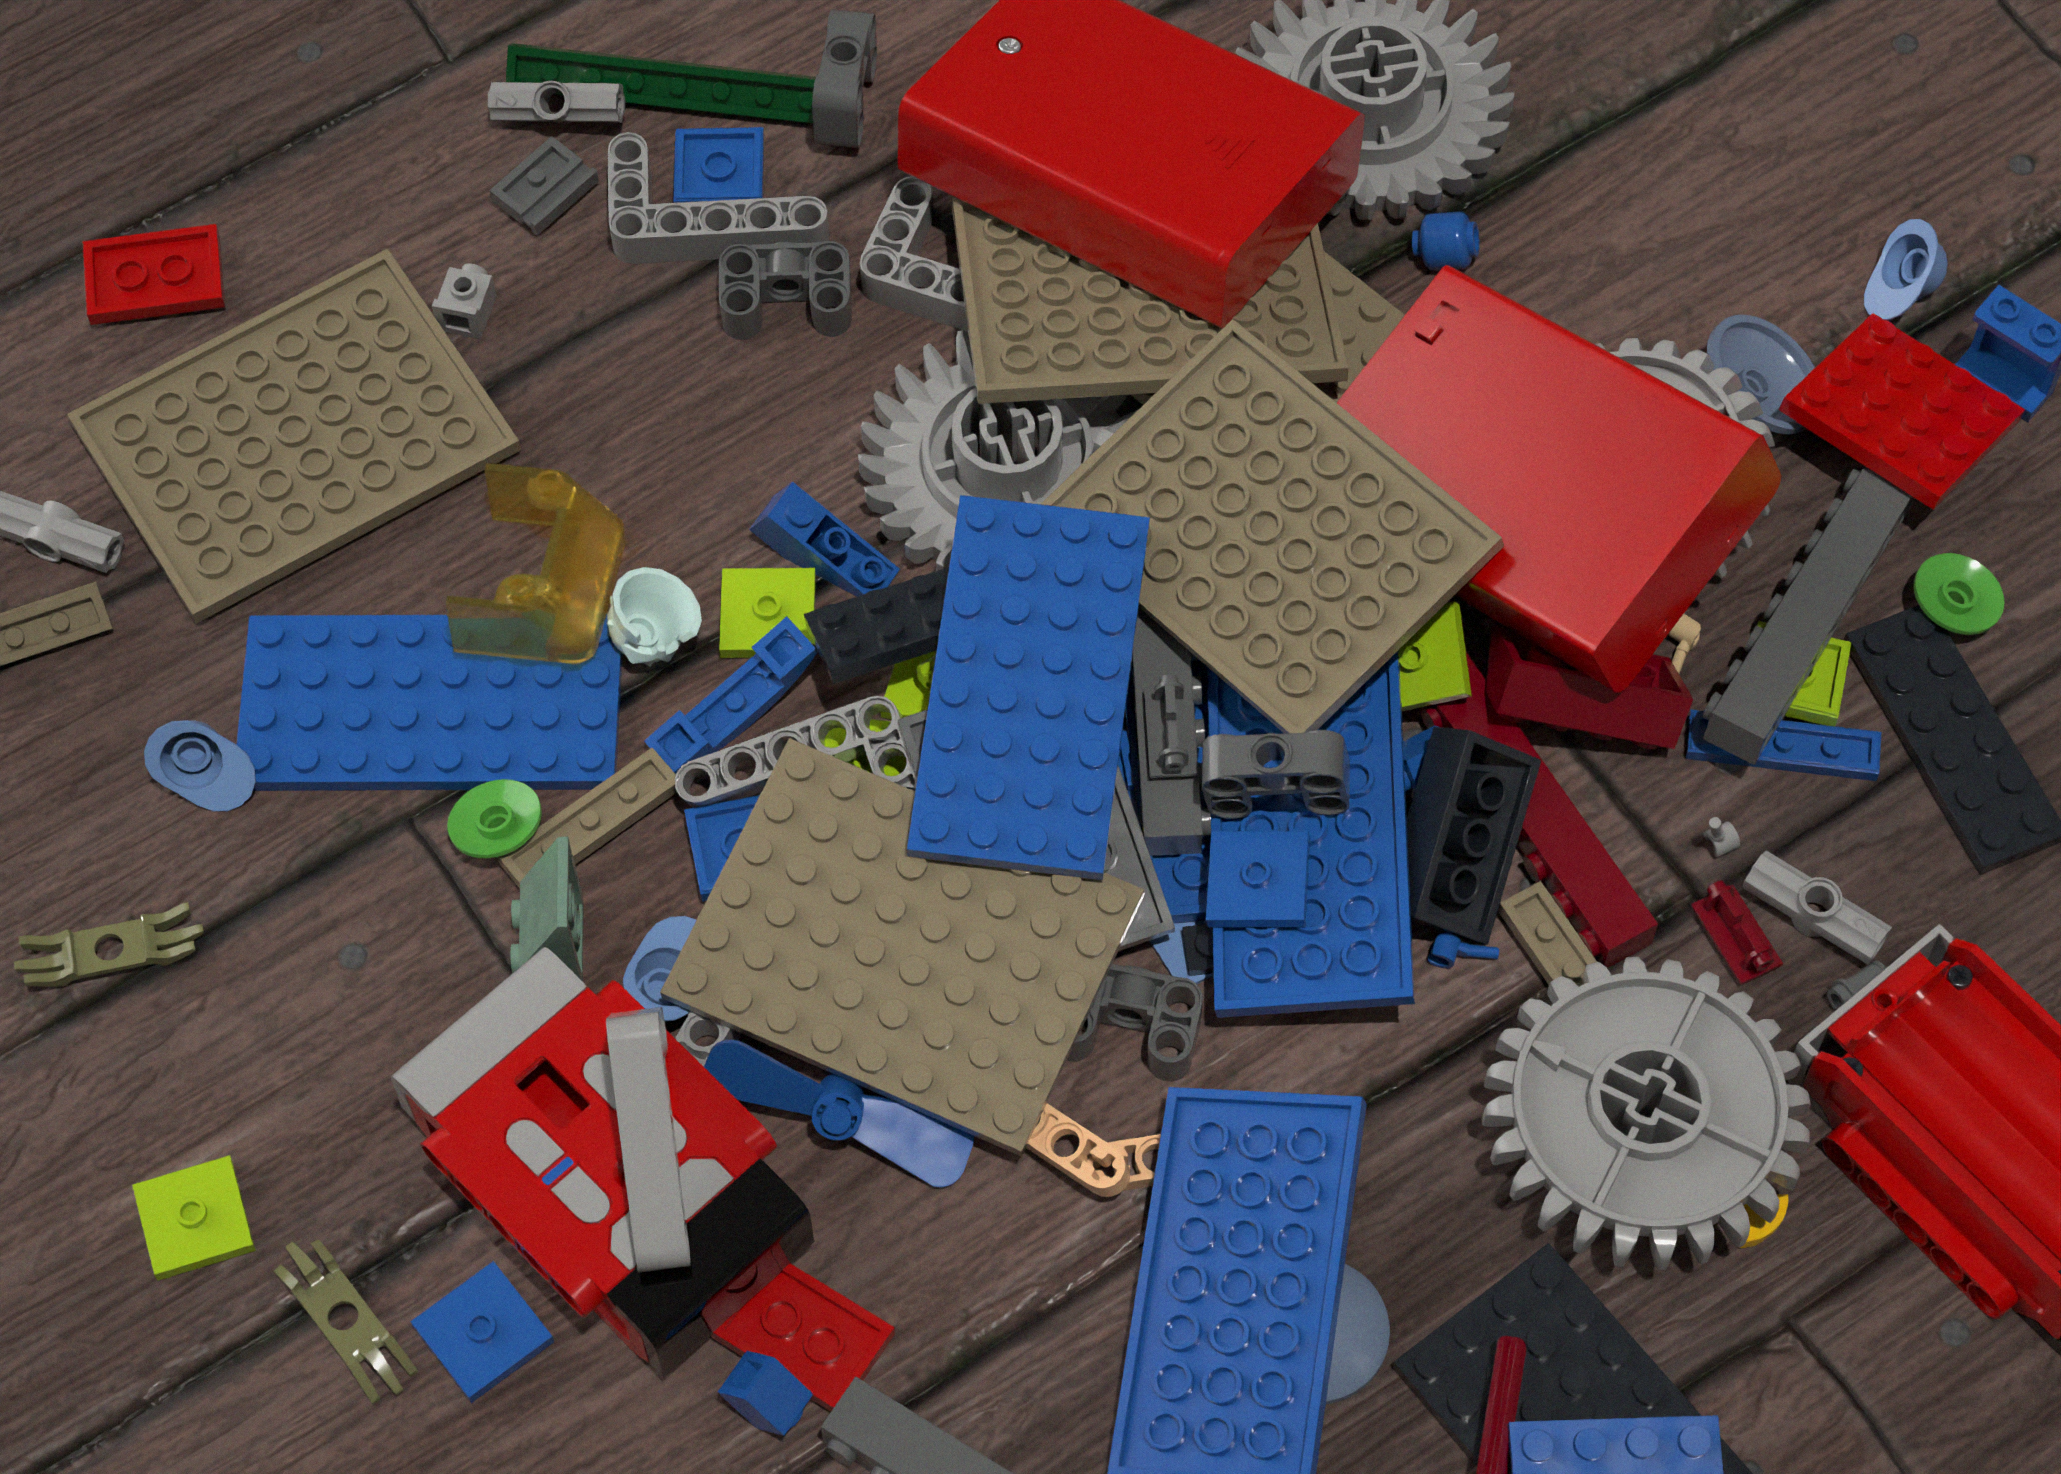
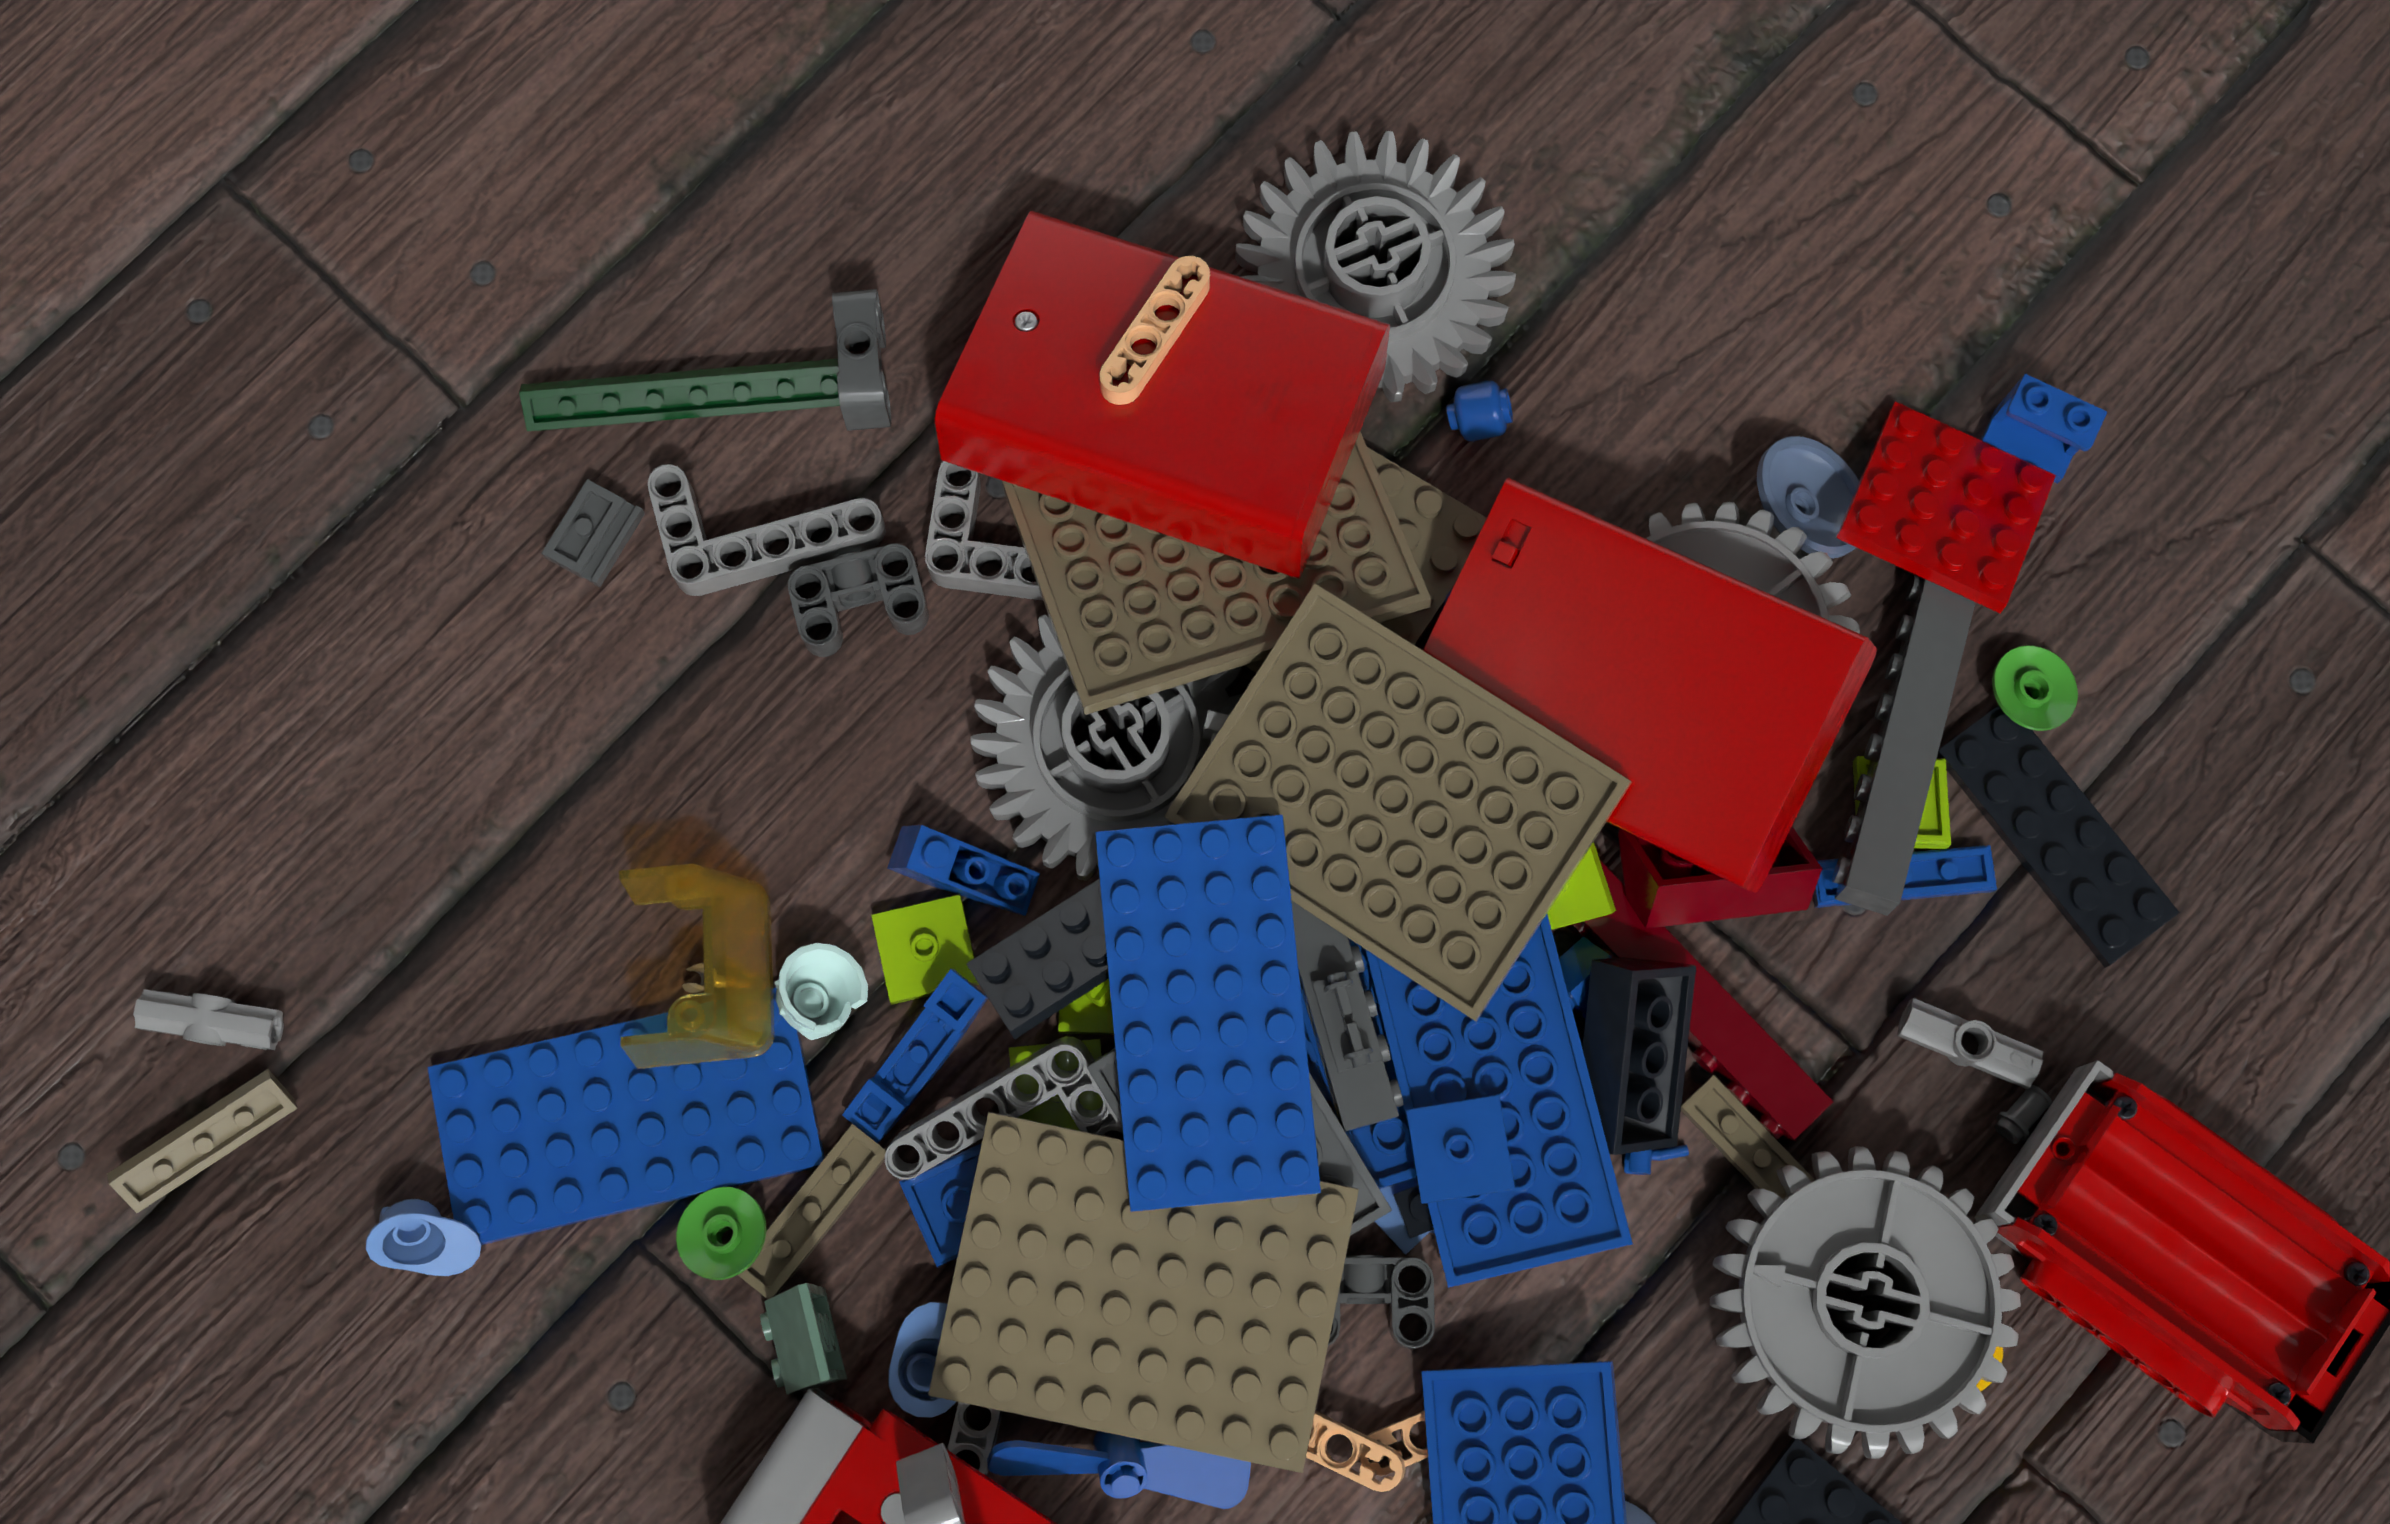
camera: 15 degrees left, 15 degrees up
(78, 955) = (358, 1454): olive piece -> none
(153, 274) = (231, 714): red plate -> none
(293, 434) = (416, 861): dark tan plate -> none
(465, 301) = (555, 691): light grey brick -> none
(582, 102) = (556, 444): light grey piece -> none
(718, 164) = (760, 477): blue plate -> none
(1124, 65) = (1150, 327): none -> light nougat beam
(1311, 766) = (1494, 1043): dark grey beam -> none
(1722, 836) = (1868, 987): light grey hand -> none
(1736, 933) = (1900, 1083): dark red hinge -> none
(1907, 270) = (1918, 354): medium blue piece -> none

